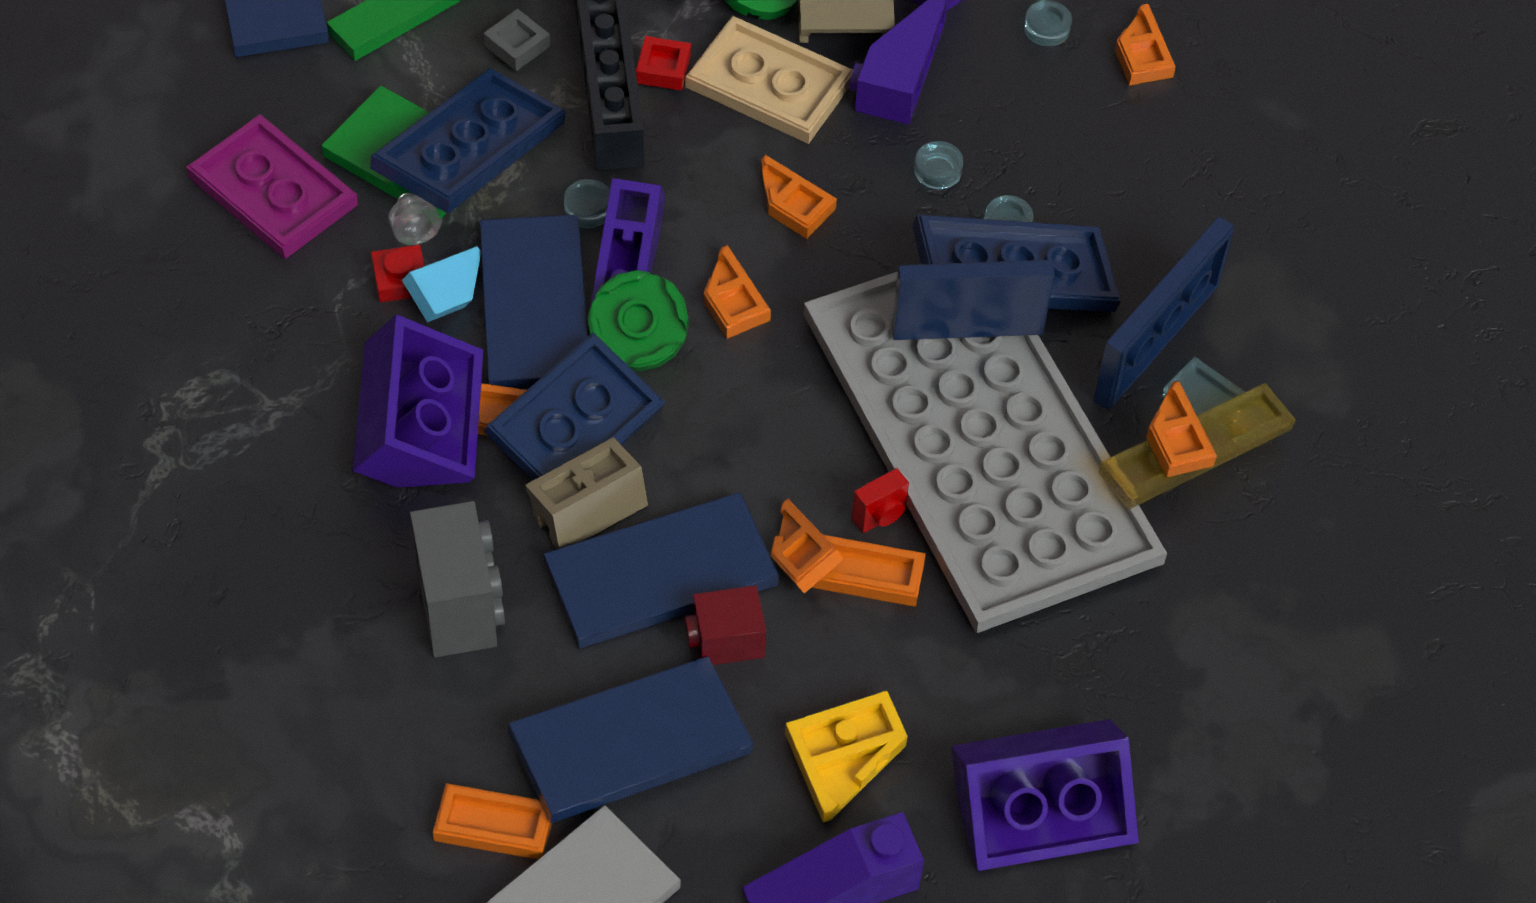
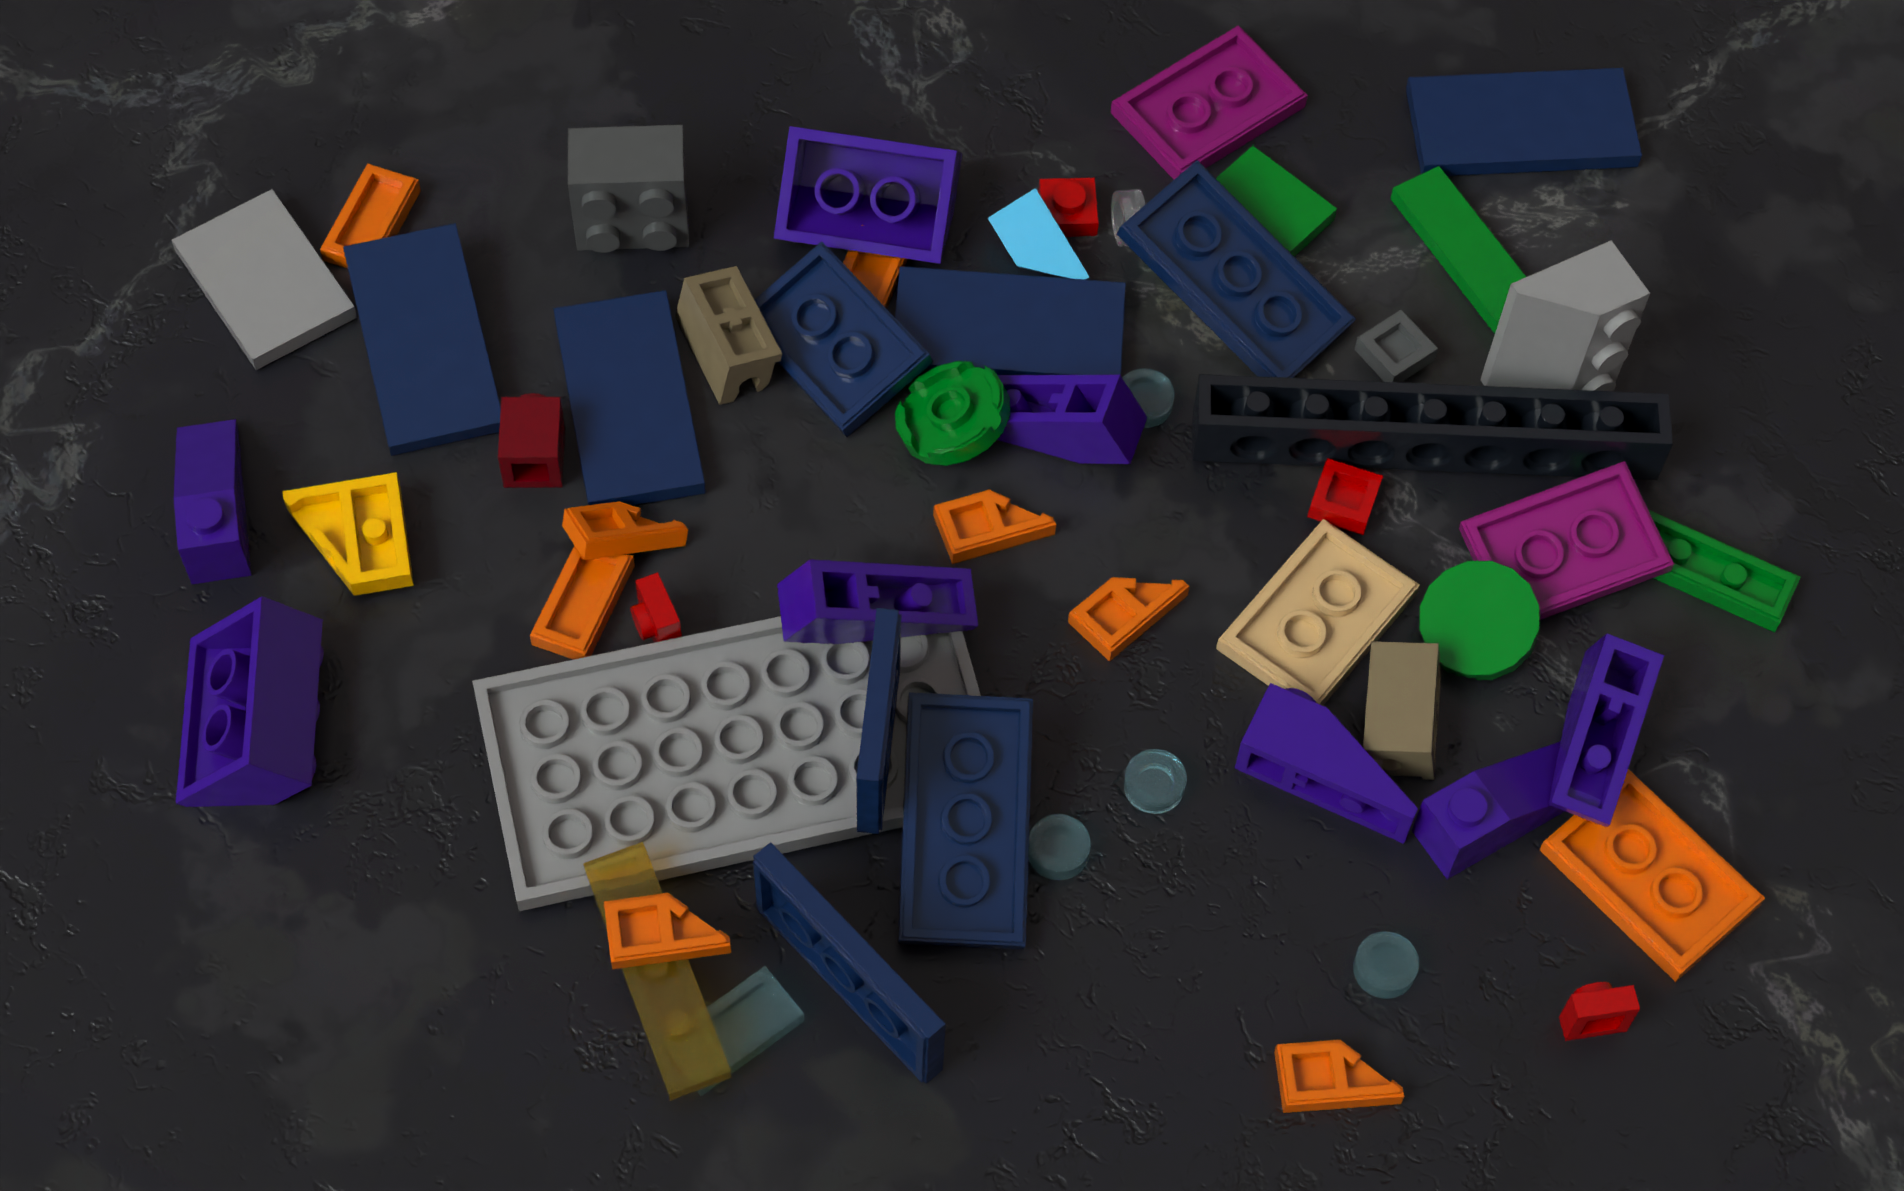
camera: 100 degrees right, 5 degrees up
(855, 335) = (840, 600): none -> dark purple slope

